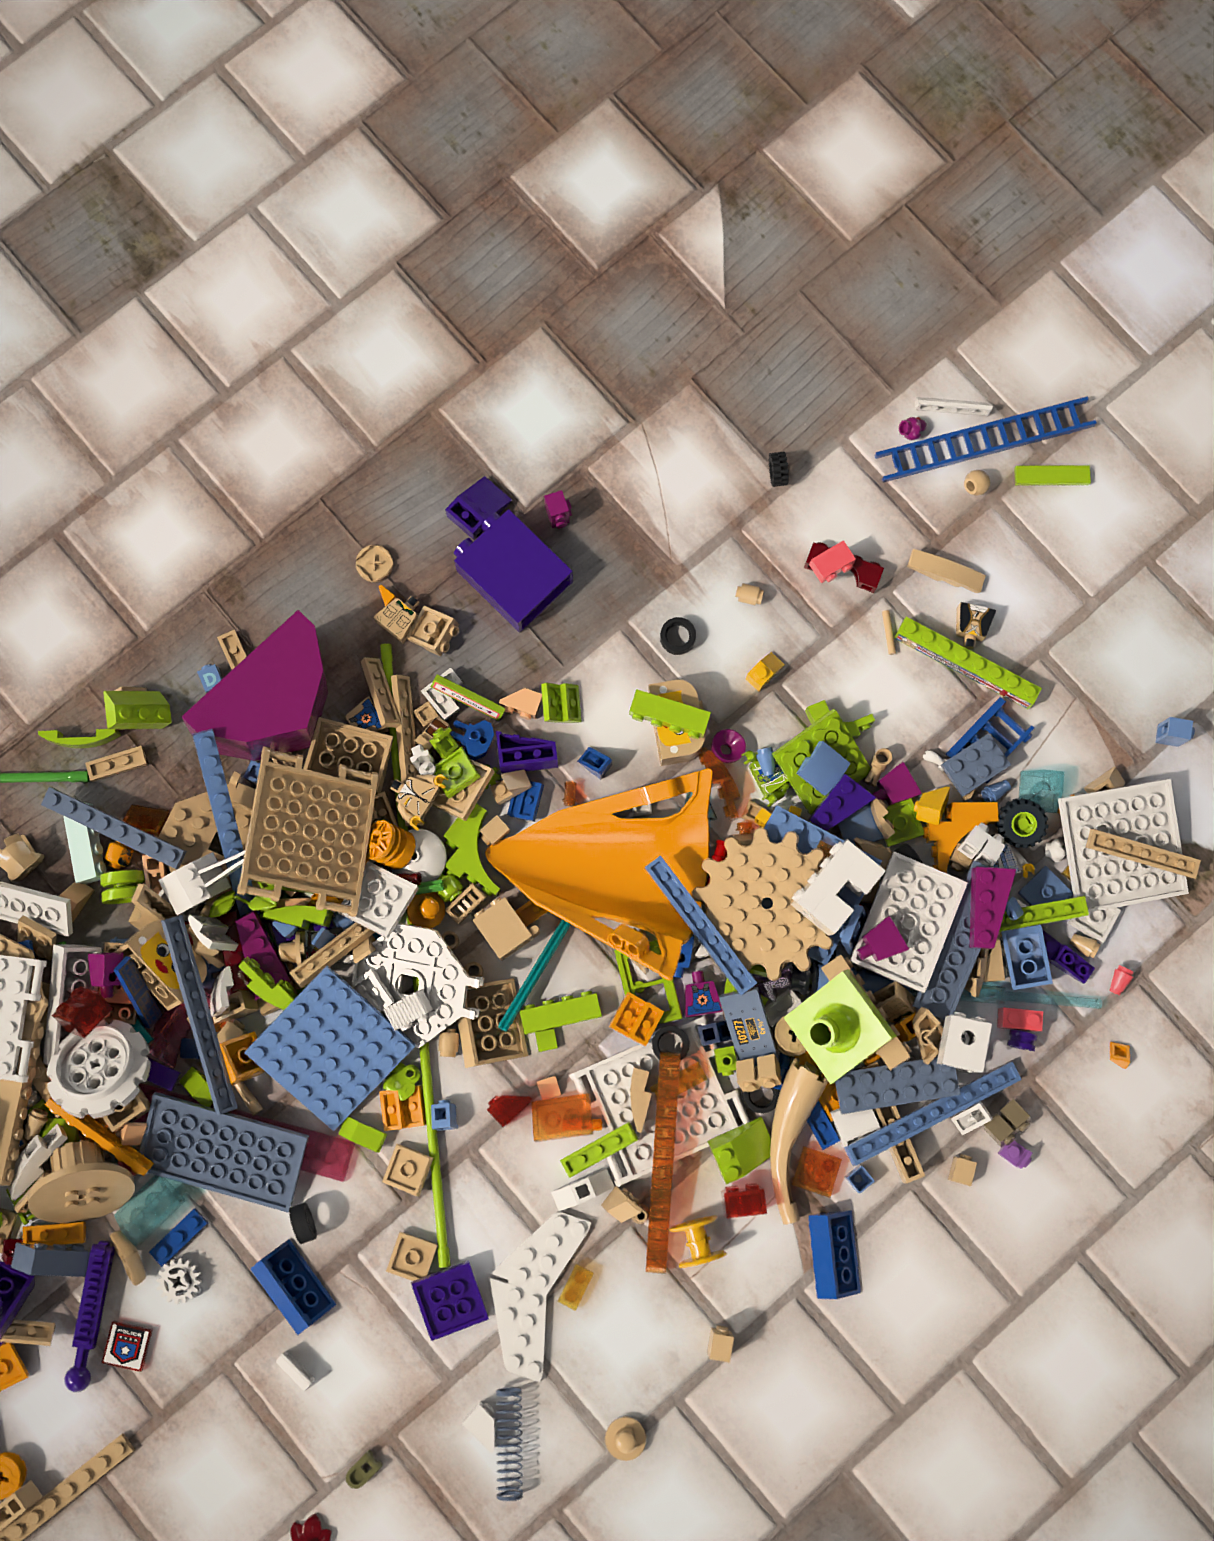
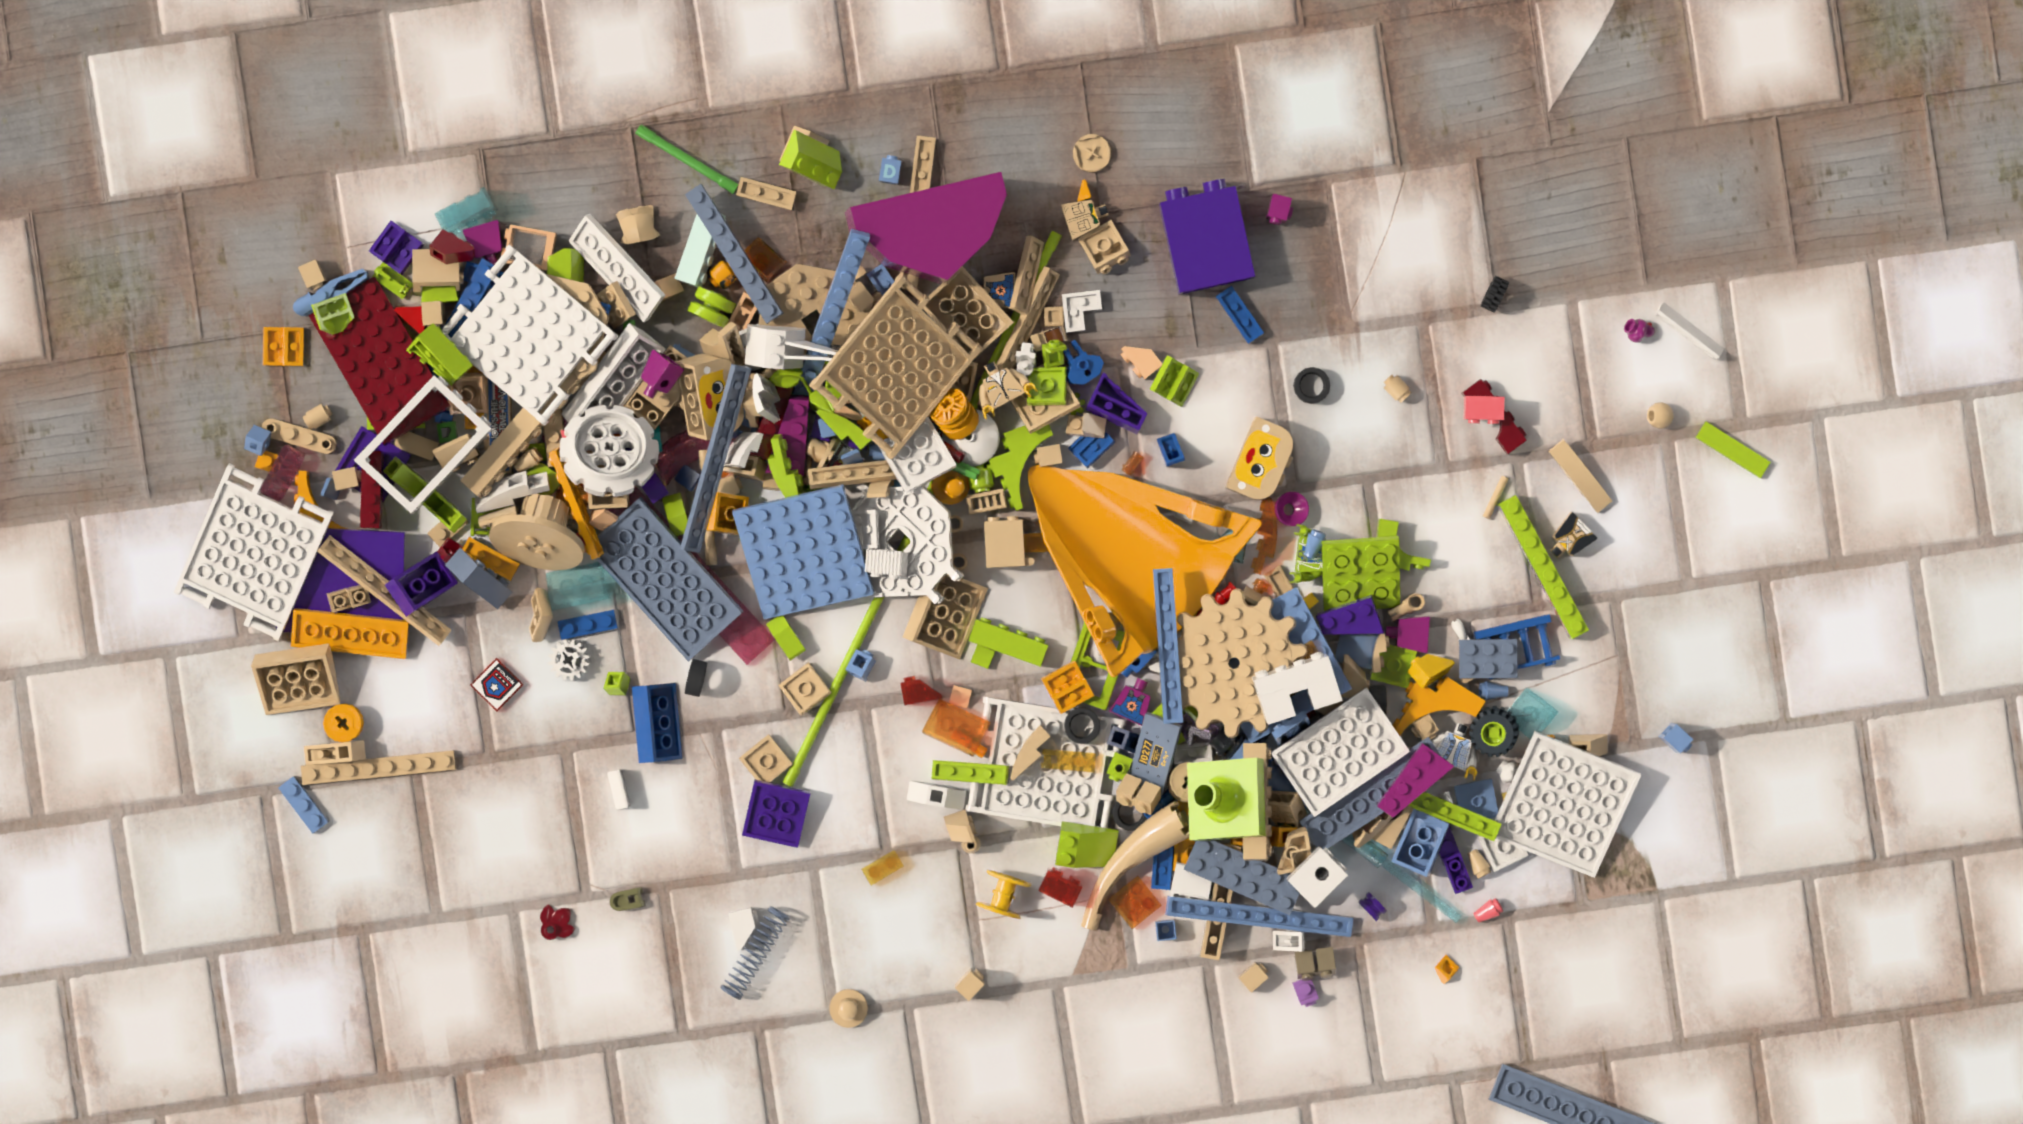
camera: 30 degrees right, 10 degrees up
(82, 1011) = (622, 396): clear red brick -> none
(90, 1313) = (445, 683): dark purple gear -> none
(102, 737) = (728, 138): lime slope -> none
(137, 992) = (674, 406): blue tile -> none
(236, 1274) = (616, 683): none -> lime slope
(399, 1081) = (842, 614): lime plate -> none
(402, 1114) = (831, 636): light orange slope -> none
(448, 1043) = (901, 608): tan brick -> none
(467, 697) = (1098, 326): tile -> none
(476, 505) = (1213, 160): dark purple slope -> none
(522, 1301) = (833, 850): white wing -> none
(534, 975) = (1005, 598): teal axle -> none
(580, 616) = (1239, 314): none -> blue plate
(663, 1162) = (1015, 815): clear orange beam -> none
(669, 713) = (1257, 454): lime brick -> none
(762, 818) = (1279, 588): yellow piece -> none
(764, 671) = (1366, 463): yellow slope -> none
(823, 768) = (1356, 580): medium blue slope -> none
(834, 1254) = (1106, 975): blue slope -> none
(882, 941) = (1306, 754): magenta torso -> none
(979, 838) = (1452, 735): white hips -> none
(989, 449) = (1603, 353): blue ladder -> none
(1013, 909) = (1435, 796): medium blue slope -> none
(1020, 1019) = (1382, 888): coral brick -> none
(1143, 853) = (1574, 821): tan plate -> none

